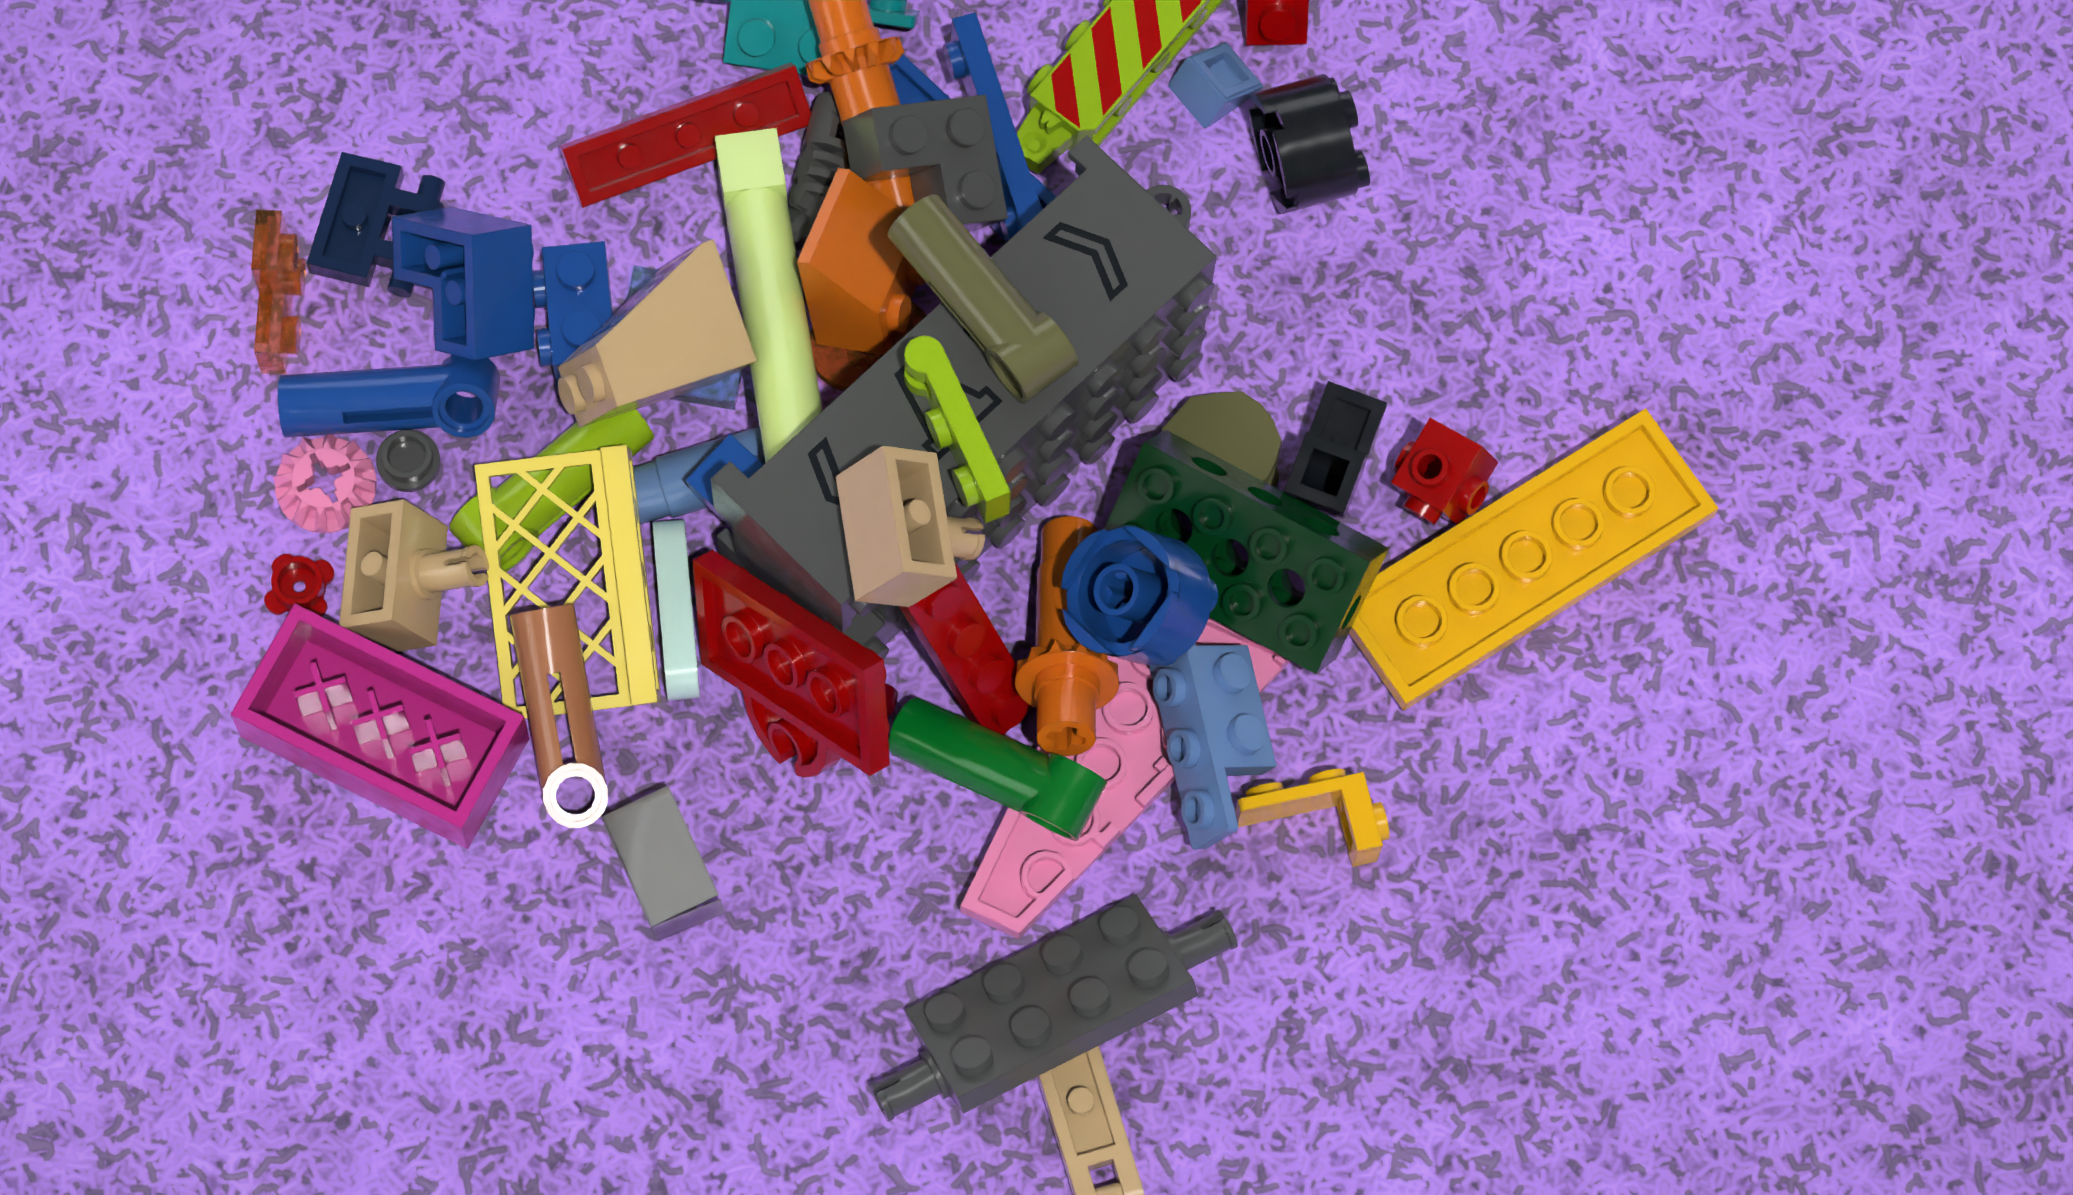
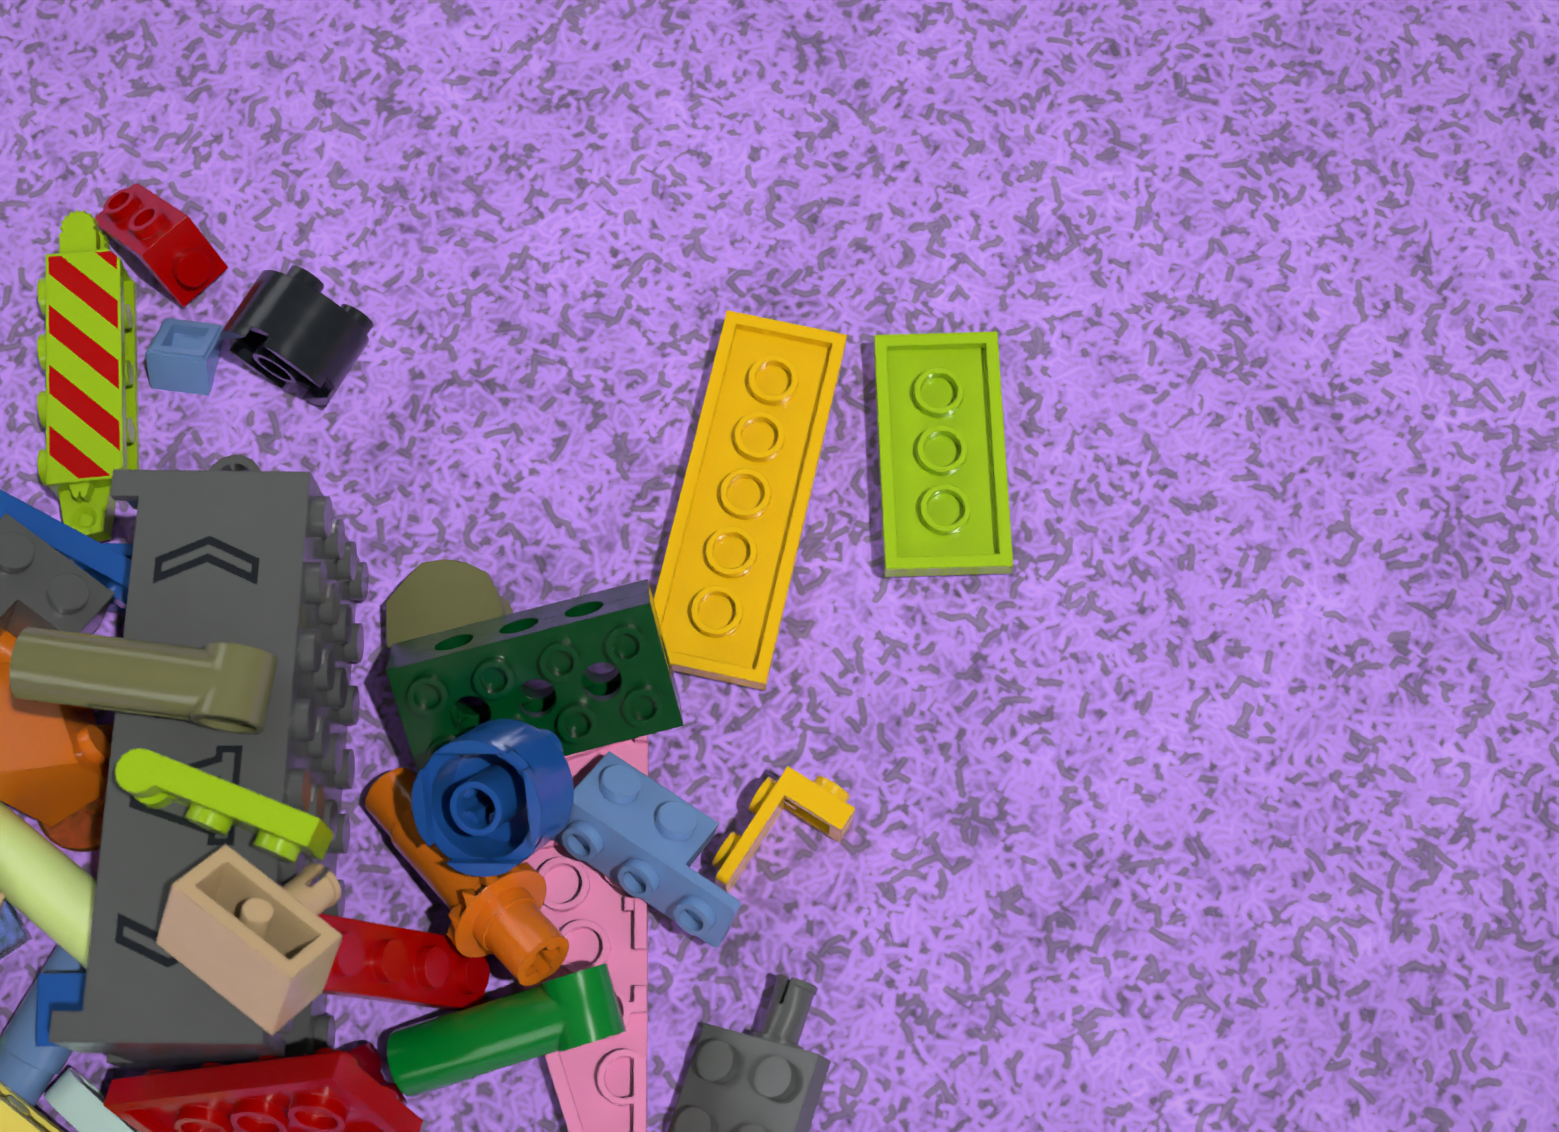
camera: 40 degrees left, 0 degrees up
(1335, 450) = (534, 542): black brick -> none
(1443, 474) = (629, 488): red brick -> none
(1703, 660) = (942, 454): none -> lime plate

